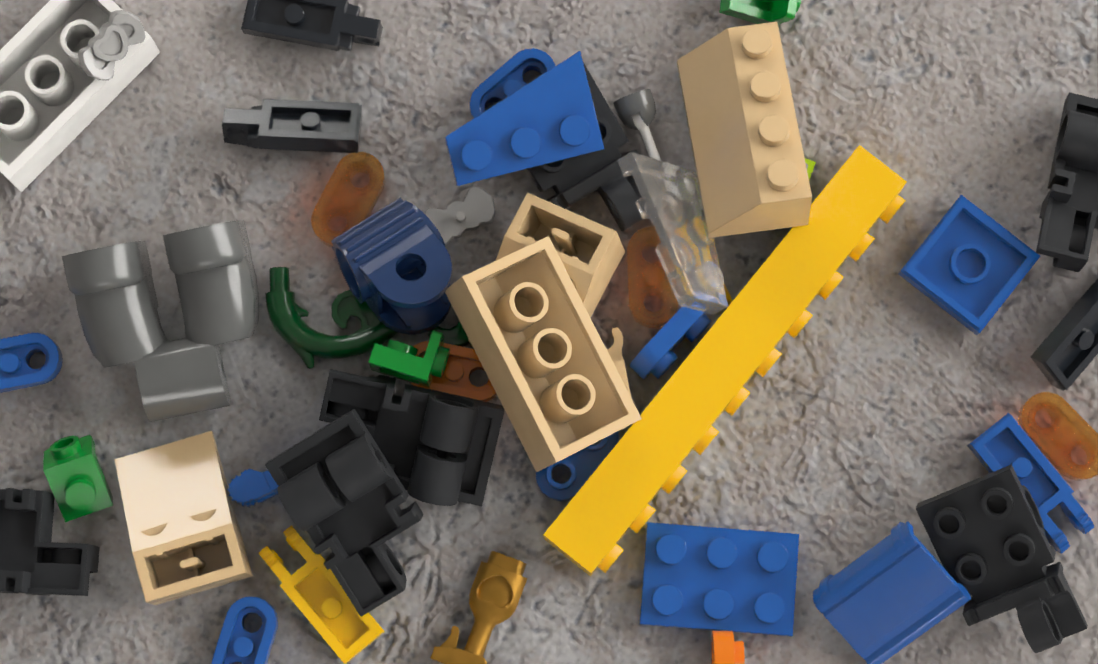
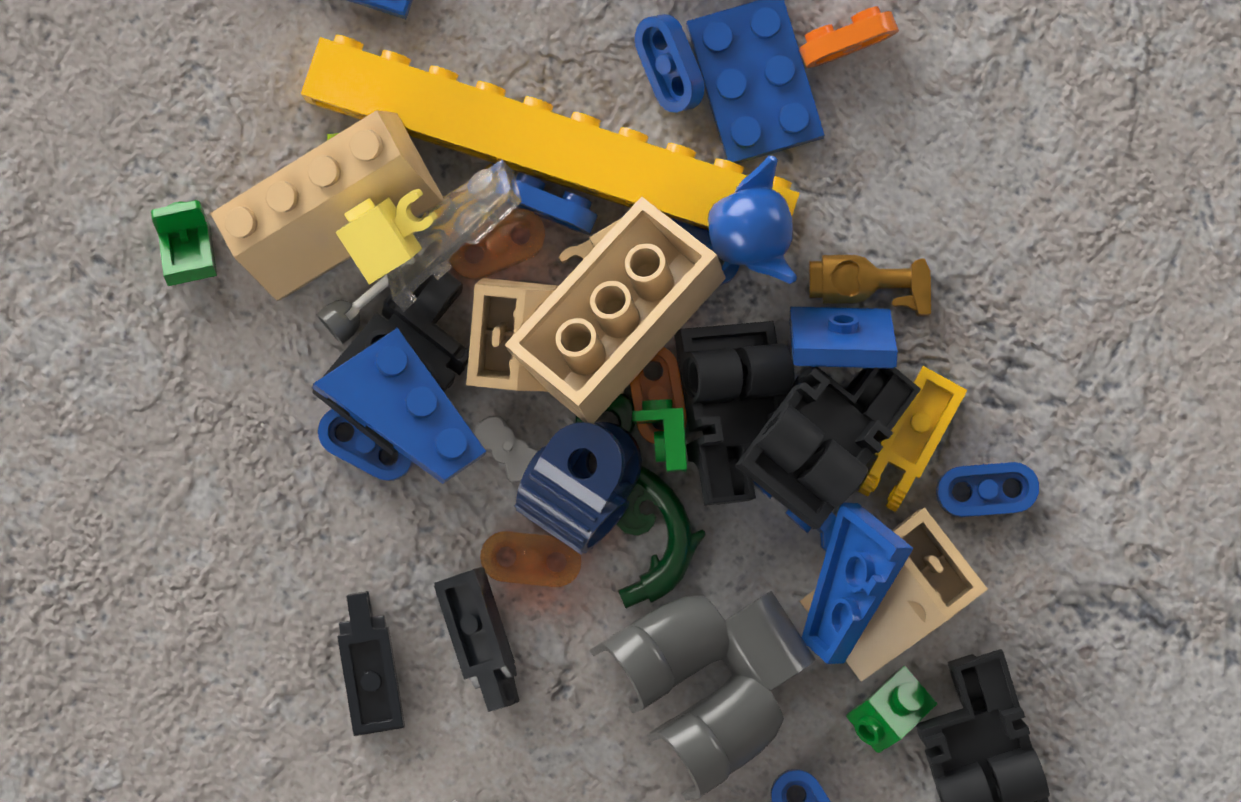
camera: 110 degrees left, 5 degrees up
(202, 476) = (852, 581): none -> blue wing
(438, 560) = (842, 337): none -> blue plate
(573, 514) = (754, 225): none -> blue piece
(693, 162) = (382, 235): none -> light yellow brick
(763, 501) = (669, 63): none -> blue plate

